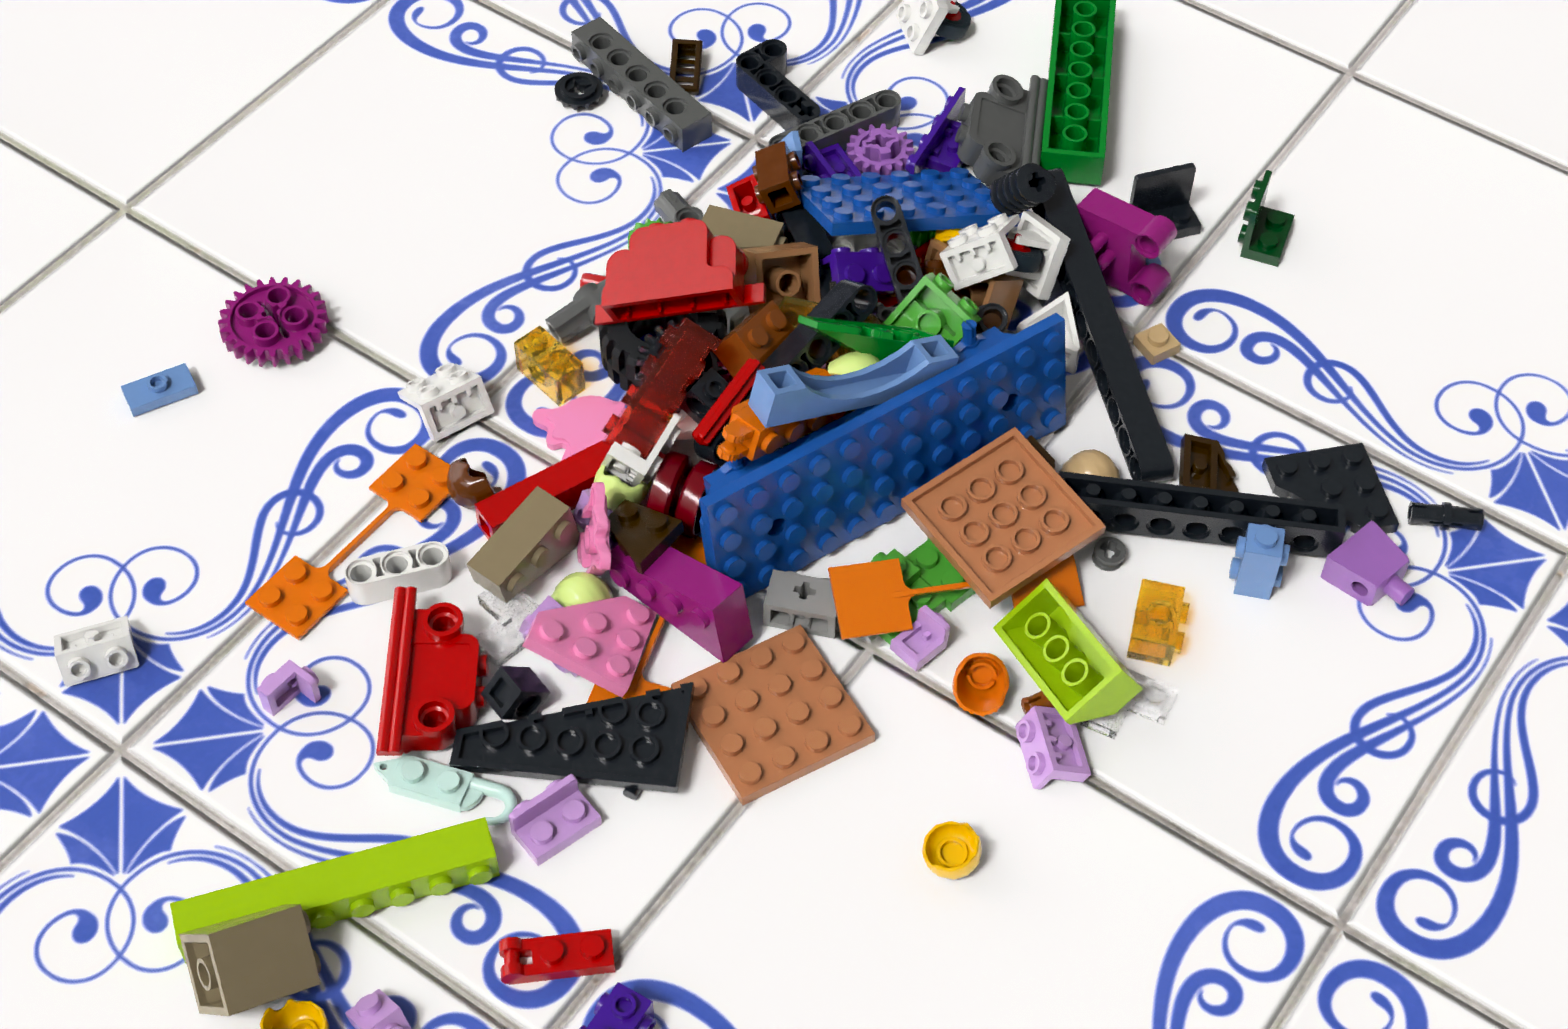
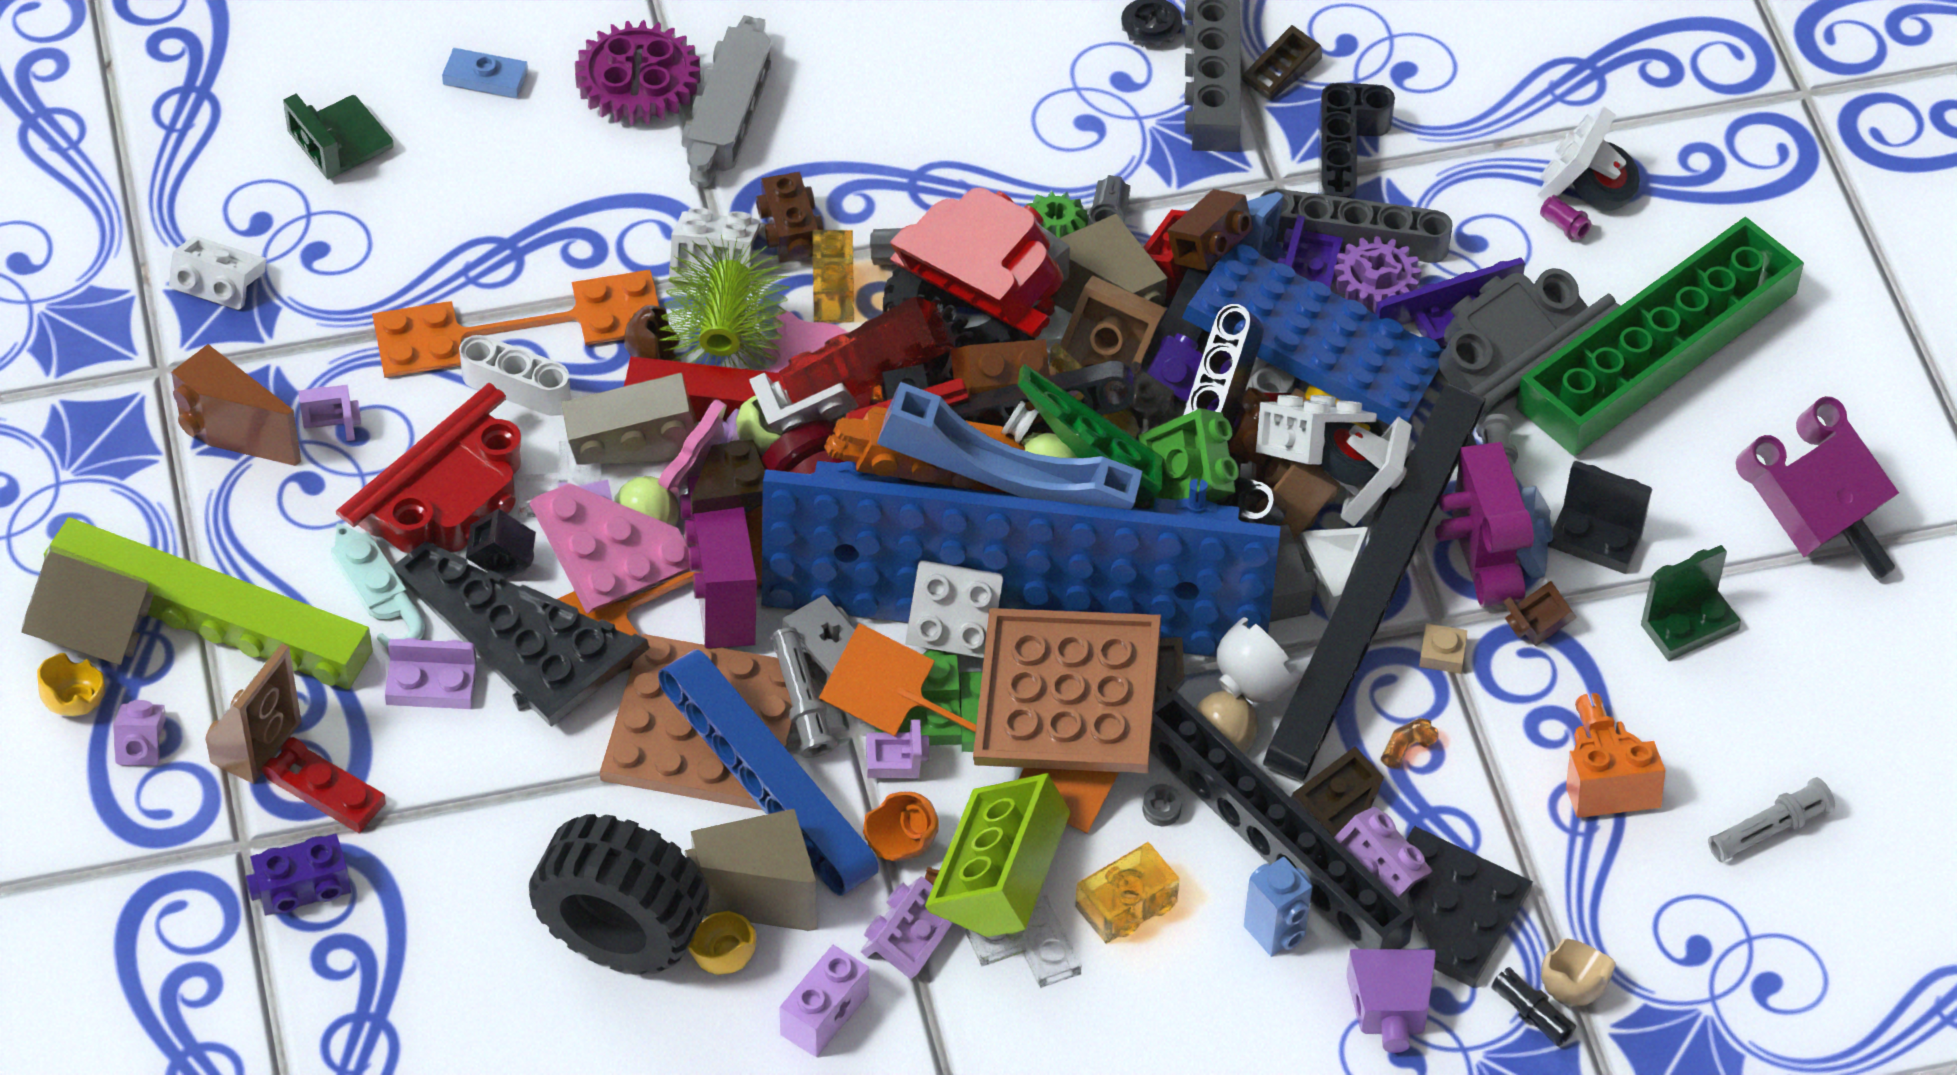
camera: 40 degrees right, 0 degrees up
(91, 497) = (337, 134): none -> dark green bracket
(221, 734) = (233, 409): none -> dark orange slope
(357, 301) = (728, 100): none -> light grey hinge
(466, 944) = (257, 720): none -> medium nougat slope
(478, 348) = (789, 216): none -> reddish brown brick
(511, 427) = (725, 307): none -> lime piece
(821, 359) = (1019, 422): none -> white bush
(838, 653) = (807, 710): none -> light grey pin
(863, 711) = (767, 769): none -> blue beam
(872, 519) = (952, 608): none -> white bracket
(875, 866) = (618, 894): none -> black tyre
(932, 783) = (758, 870): none -> dark tan slope
(946, 54) = (1573, 222): none -> magenta pin
(1022, 189) = (1425, 384): black piece -> none
(1058, 837) = (824, 1000): none -> lavender brick
(1087, 420) = (1253, 664): none -> white cylinder
(1190, 284) = (1539, 614): none -> reddish brown bracket
(1197, 411) = (1402, 738): none -> clear orange arm
(1264, 107) = (1824, 489): none -> magenta piece
(1265, 478) = (1383, 851): none -> lavender bracket
(1328, 343) = (1611, 767): none -> orange brick
(1442, 305) = (1788, 812): none -> light grey pin
(1450, 477) = (1576, 973): none -> tan hair

